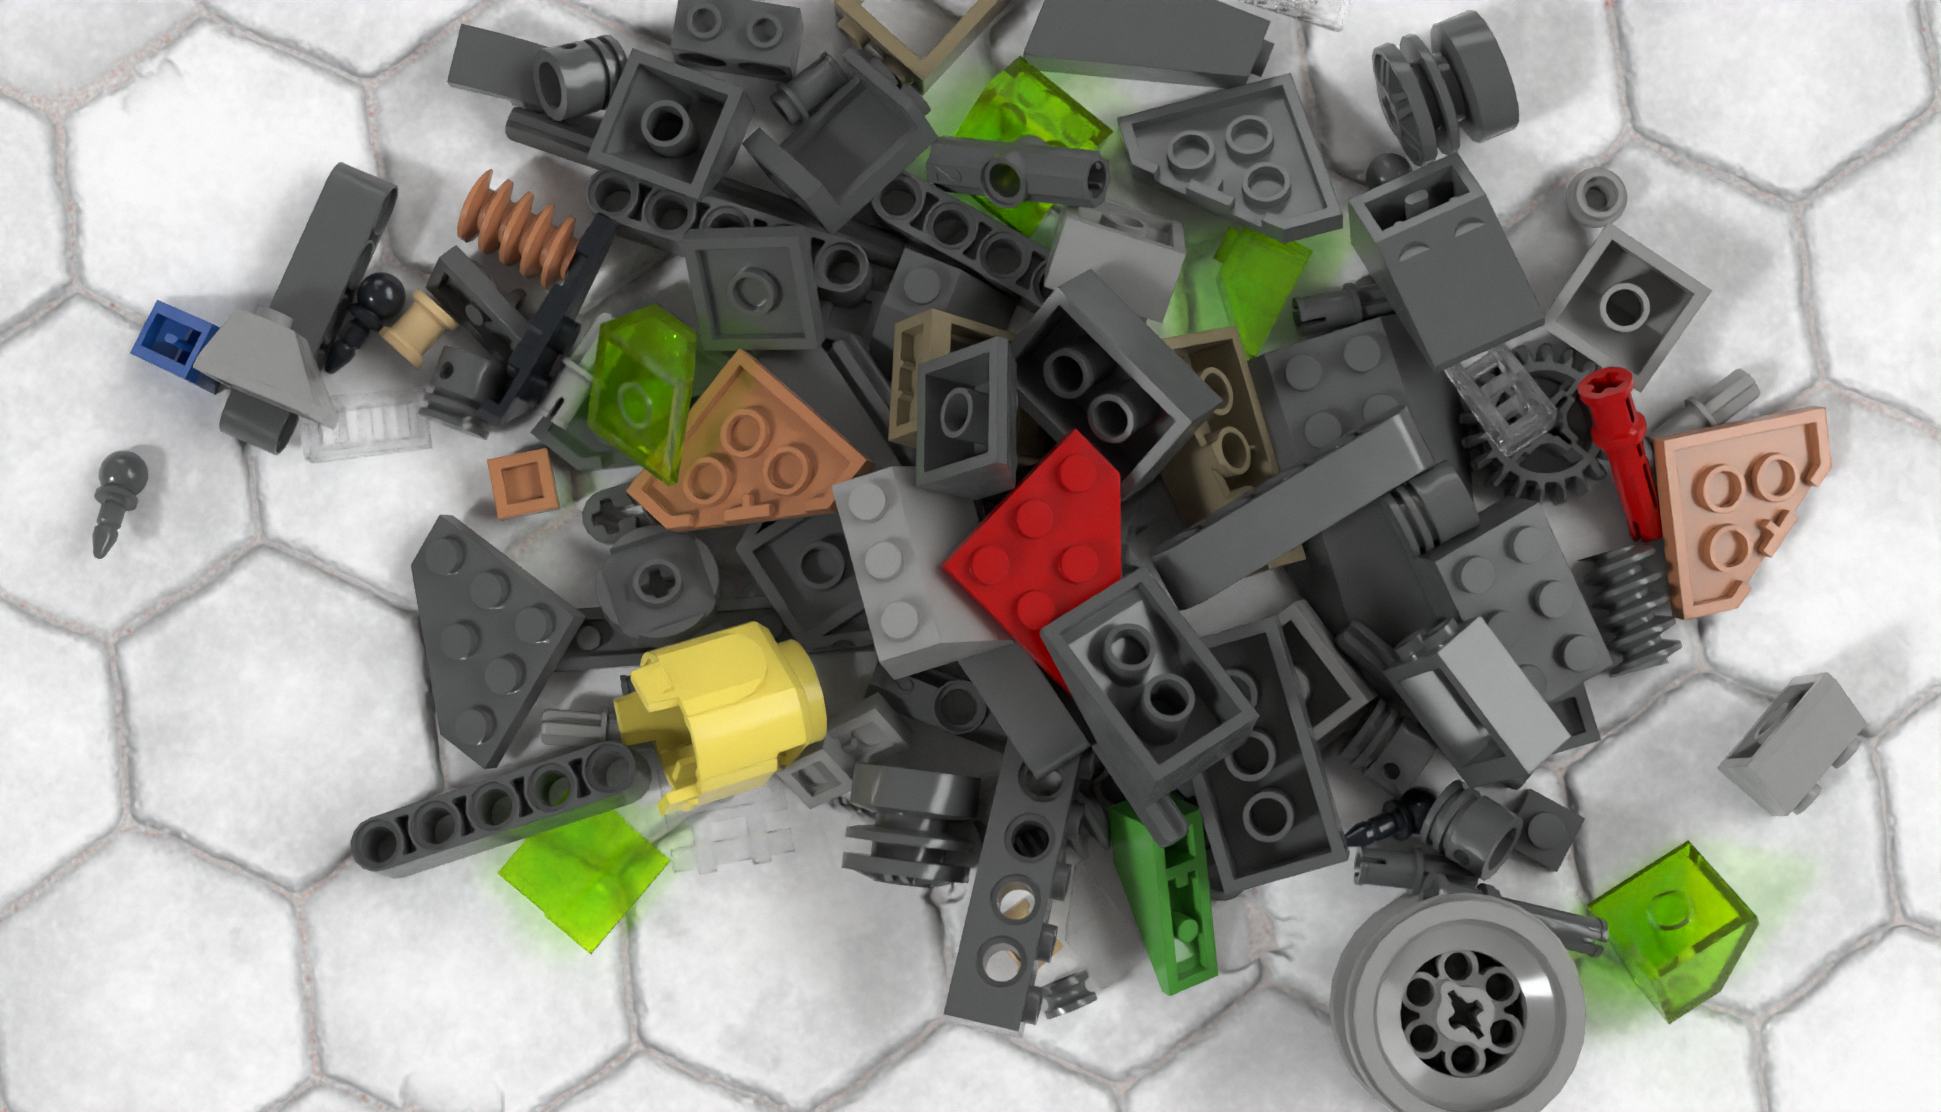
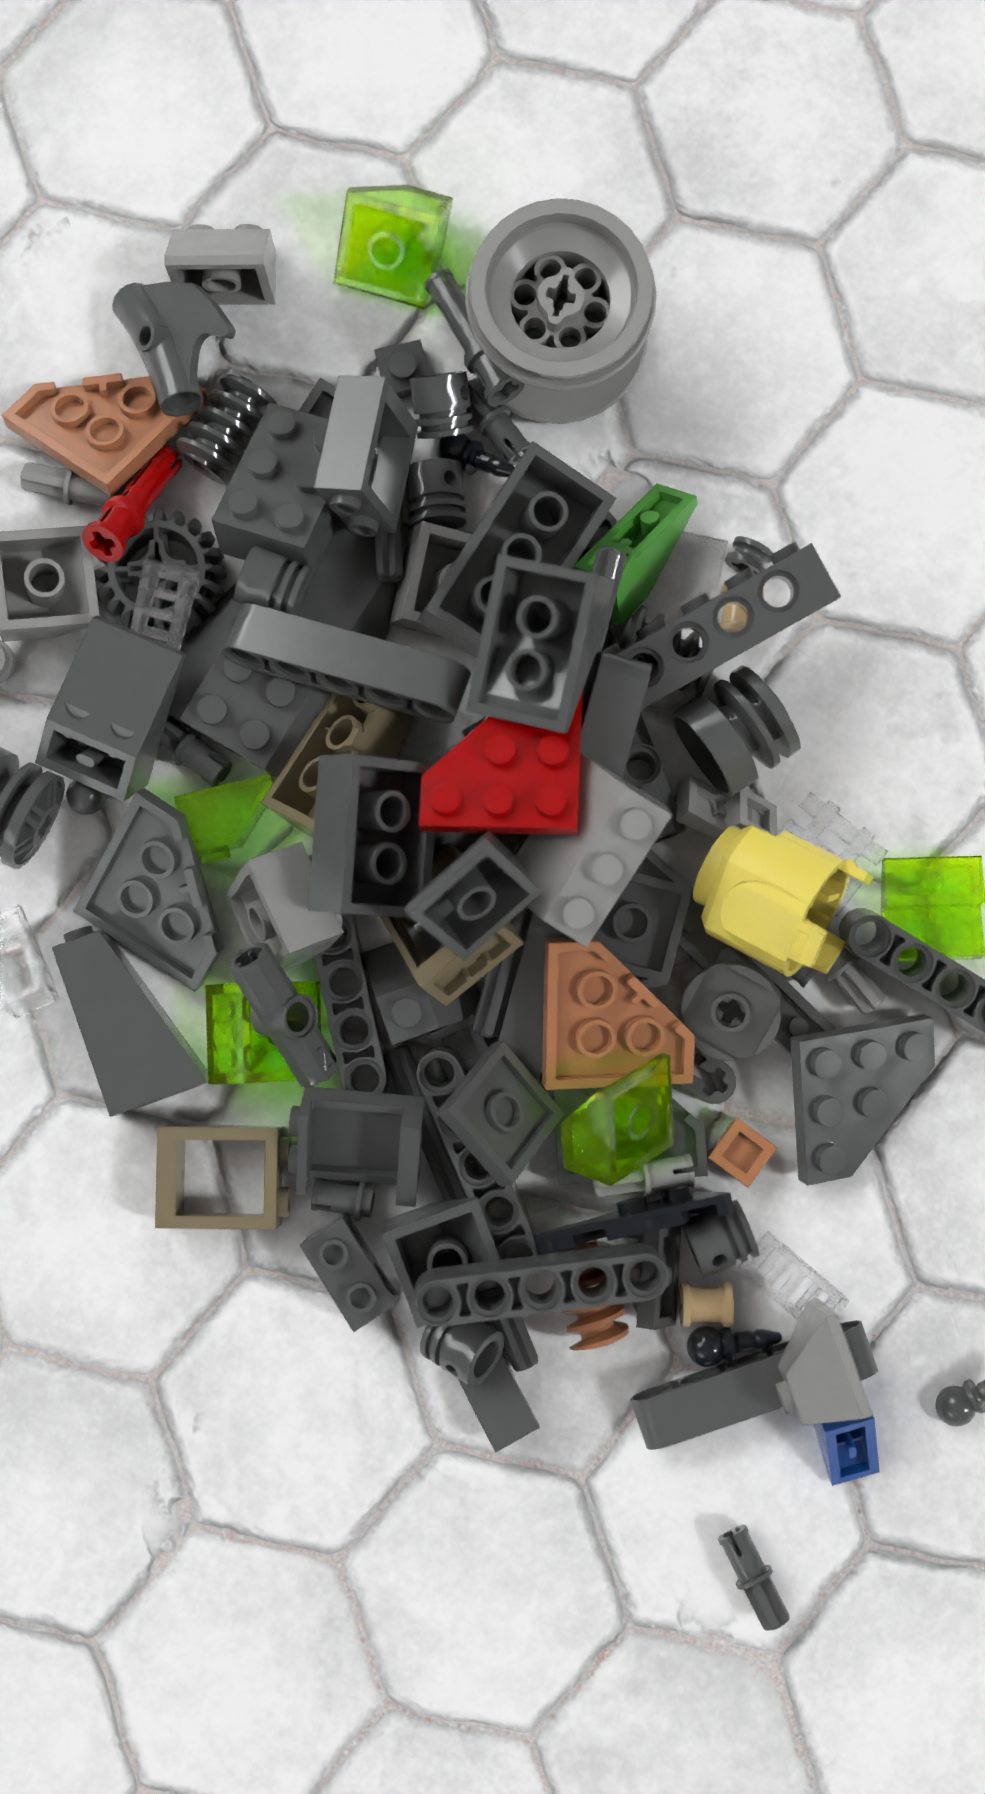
camera: 130 degrees left, 0 degrees up
(143, 156) = (754, 1578): none -> dark grey axle
(571, 155) = (563, 1296): none -> dark grey beam
(1765, 632) = (168, 330): none -> dark grey pin

